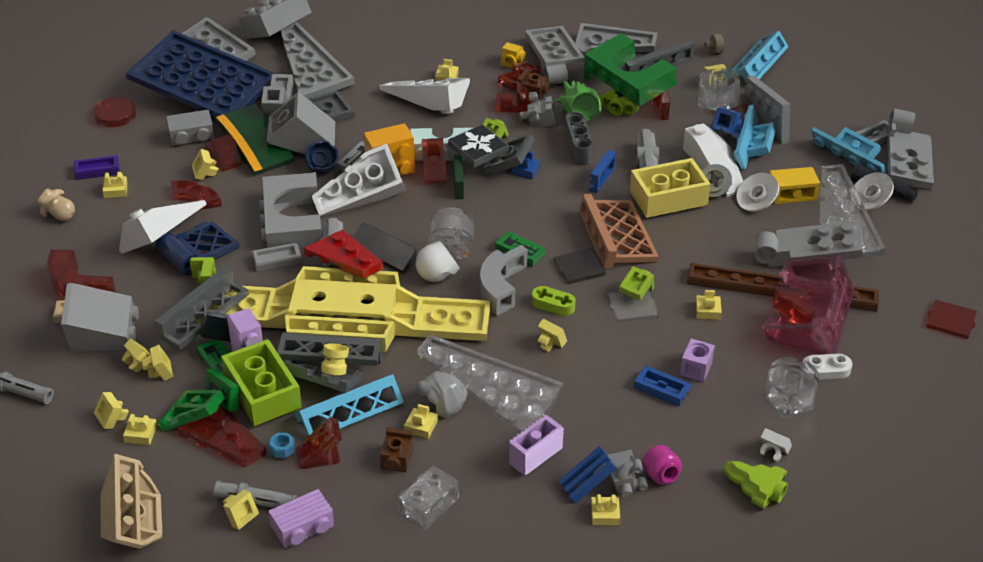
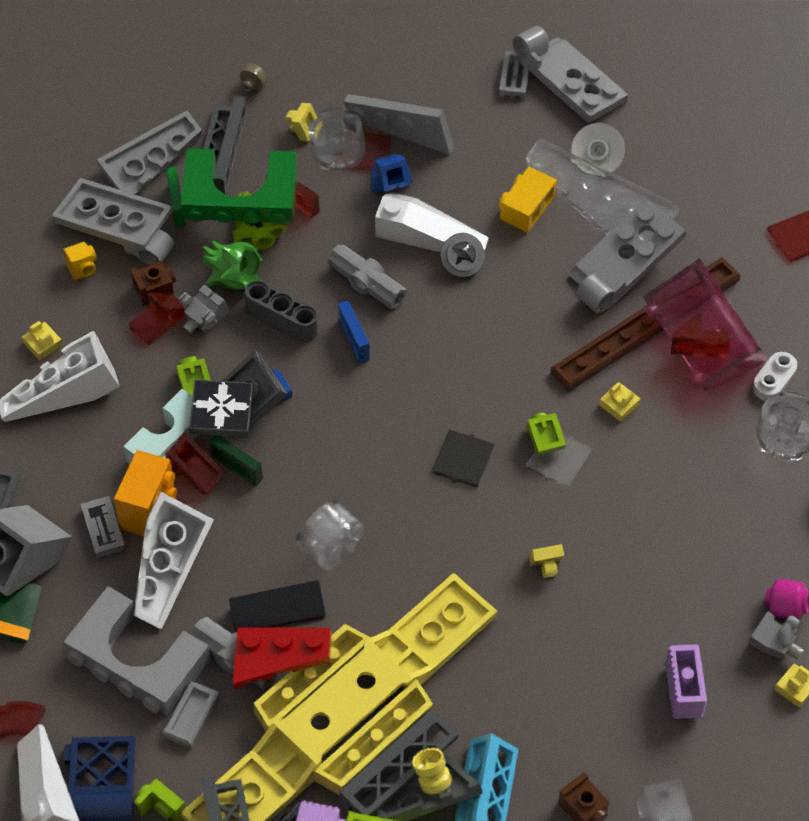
camera: 50 degrees left, 15 degrees up
(321, 156) = (79, 560): dark blue hair -> none
(421, 421) = (558, 754): light yellow tile -> none
(435, 262) = (357, 579): white helmet -> none
(444, 391) = (547, 706): light grey hair -> none
(493, 275) = (421, 549): light grey arch -> none
(501, 387) = (577, 650): clear wing -> none
(510, 79) = (116, 279): clear red slope -> none
(510, 241) = (392, 488): green tile -> none
(553, 301) = (495, 519): lime beam -> none
(585, 470) = (767, 670): blue tile -> none
(601, 233) = (440, 404): nougat fence -> none
(661, 388) = (671, 531): blue tile -> none
(669, 187) = (440, 299): light yellow brick -> none
(697, 360) = (688, 477): lavender brick -> none
(753, 139) = (434, 168): medium azure bracket -> none
(757, 192) = (498, 232): white dish -> none
(761, 56) = (315, 58): medium azure fence -> none
(851, 146) = (523, 108): medium azure bracket -> none
(900, 189) = (566, 133): black pin -> none

